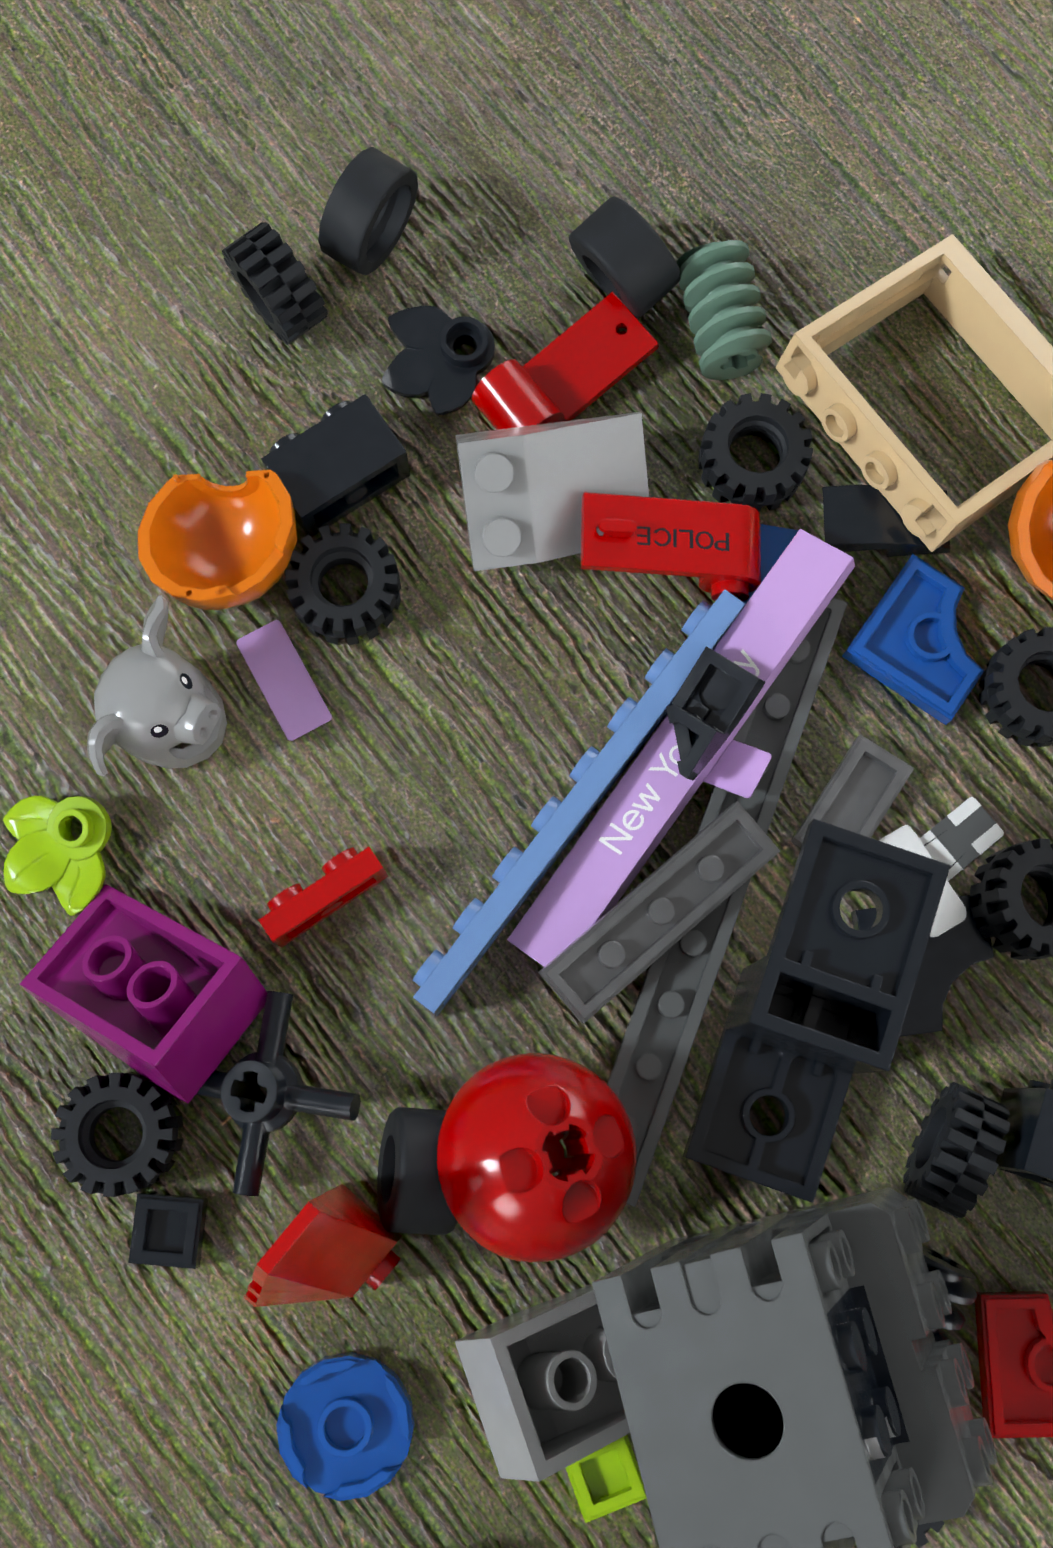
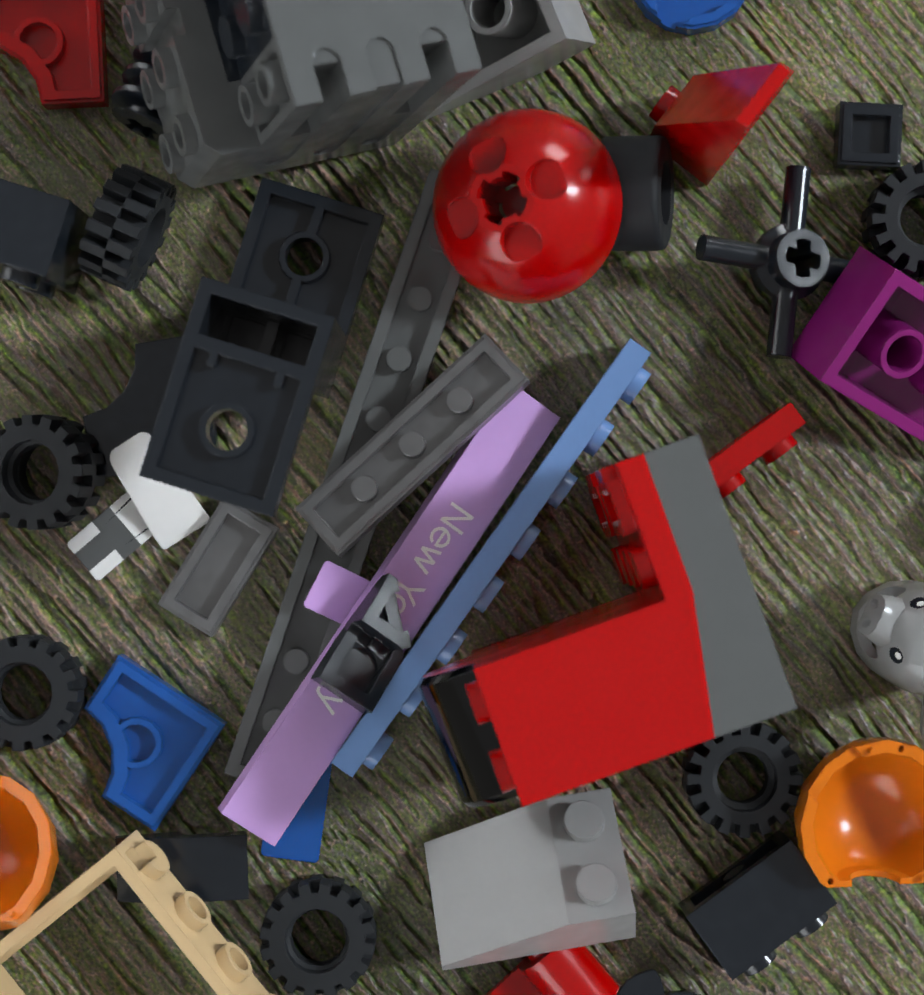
camera: 175 degrees right, 10 degrees up
(284, 680) = (815, 700): lavender sticker -> none
(463, 664) = (628, 675): none -> red piece
(675, 539) = (401, 830): red door -> none

